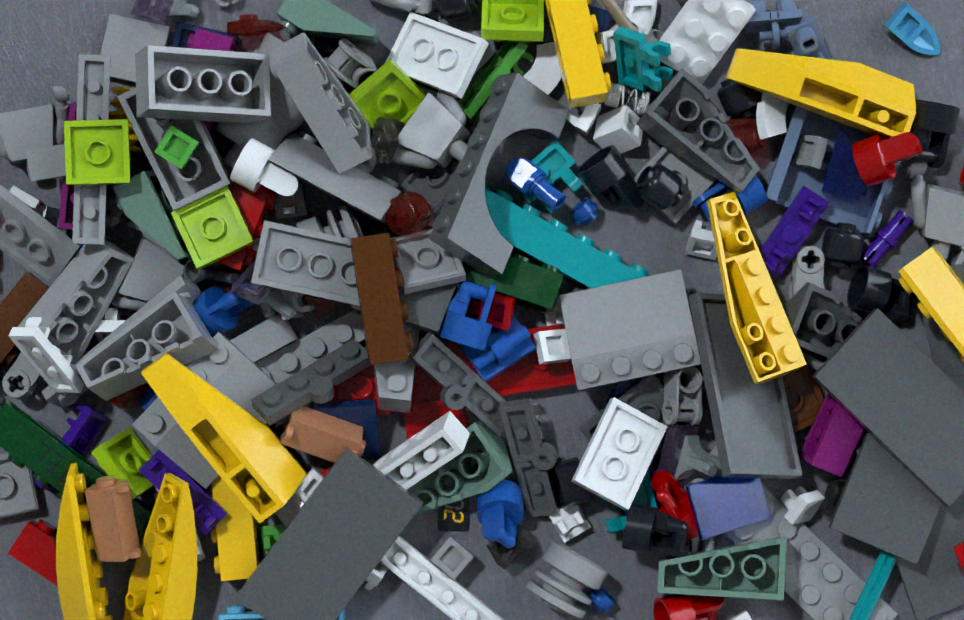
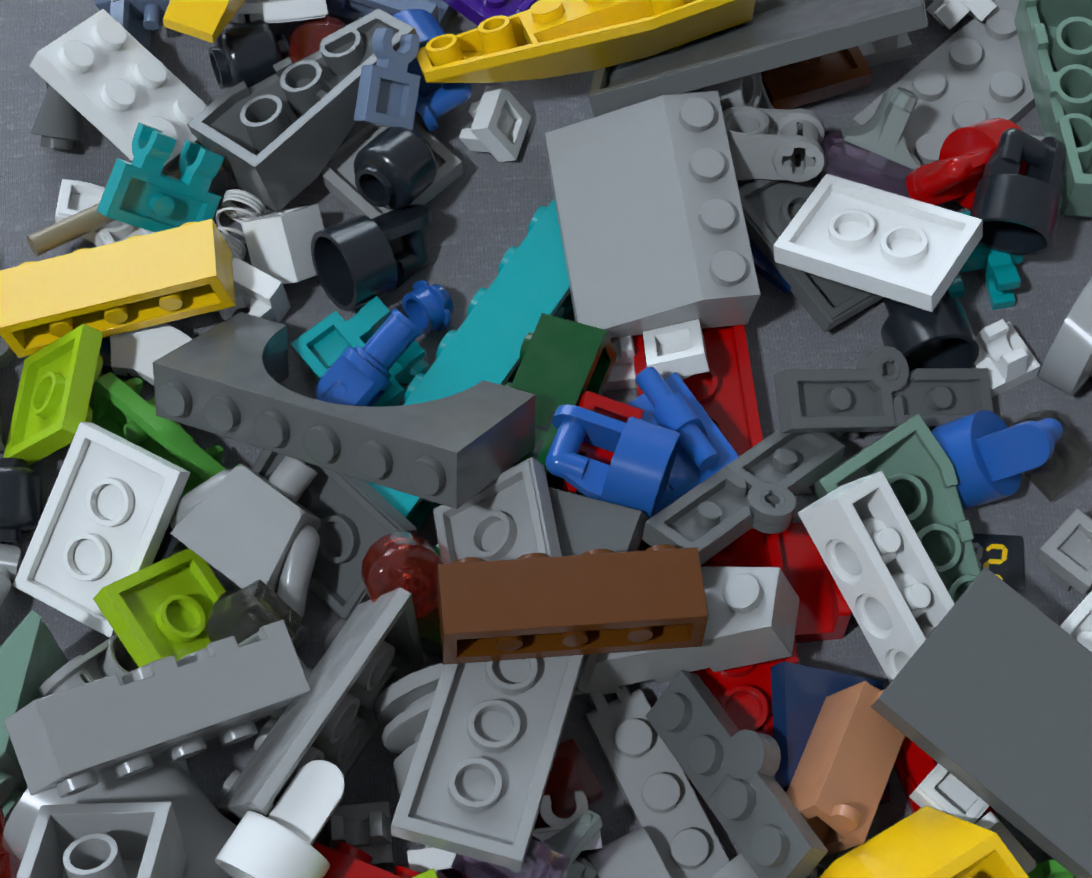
camera: 85 degrees left, 25 degrees down
(700, 180) = (386, 90): none -> sand blue plate
(726, 504) = (961, 87): clear blue piece -> none

